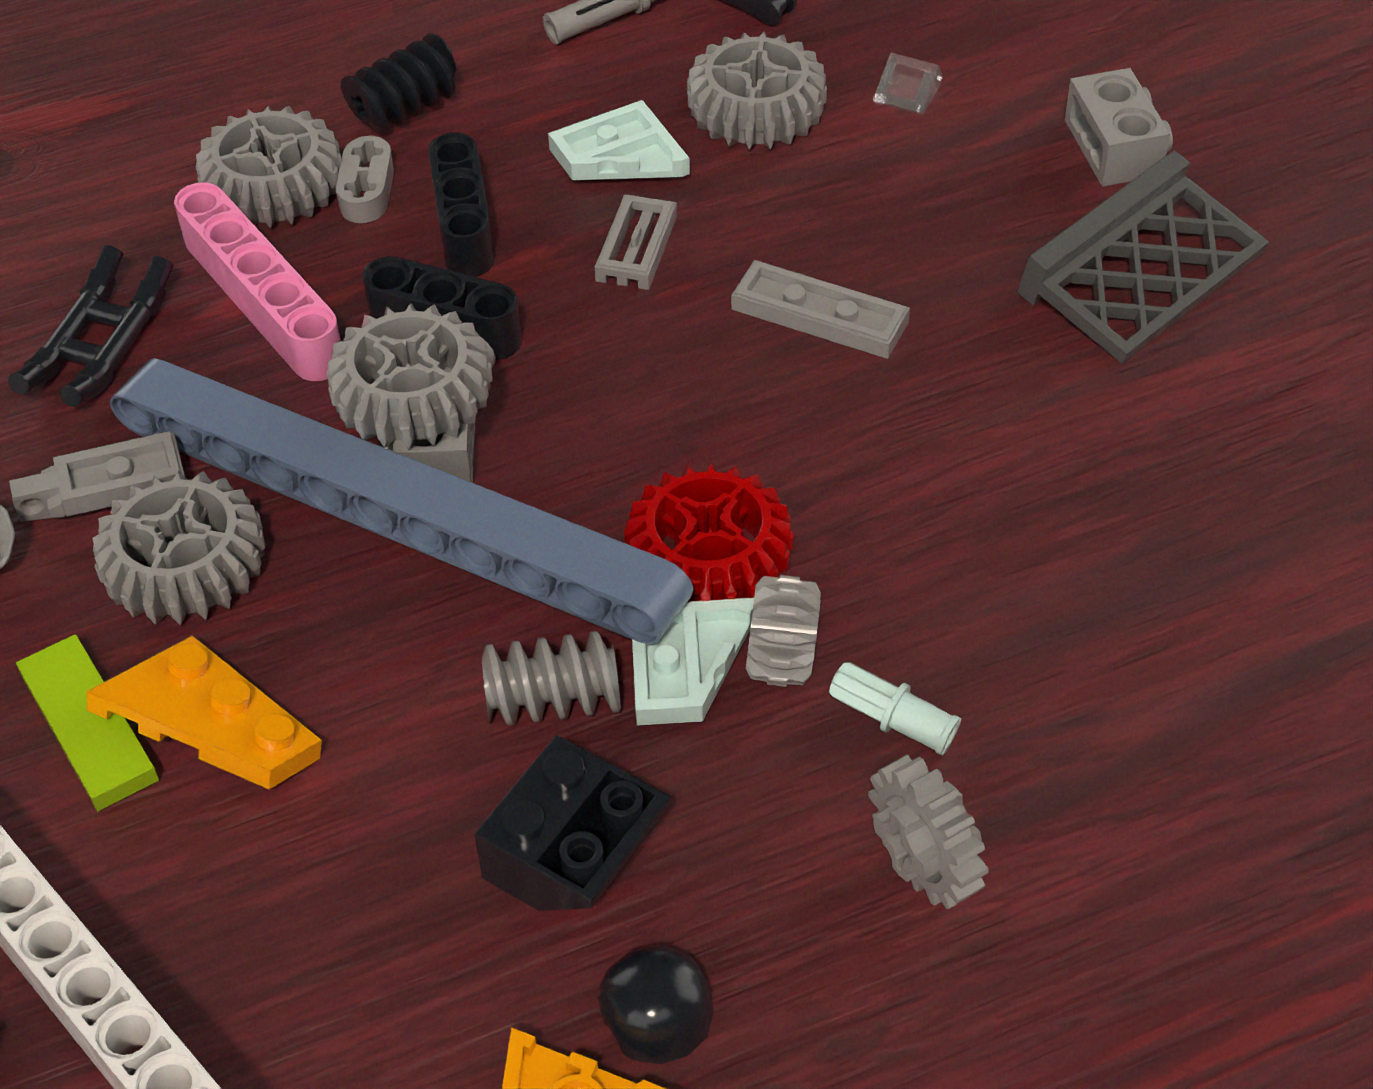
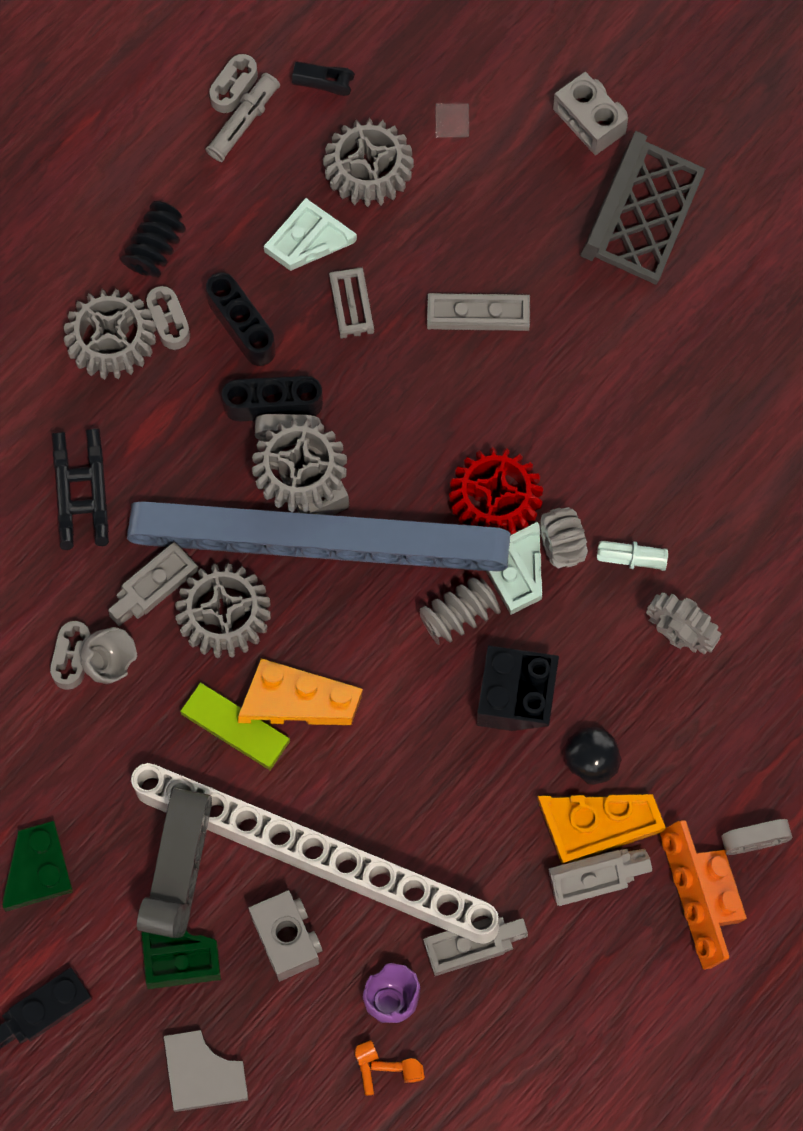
camera: 25 degrees left, 20 degrees up
(258, 279) = (147, 406): bright pink beam -> none

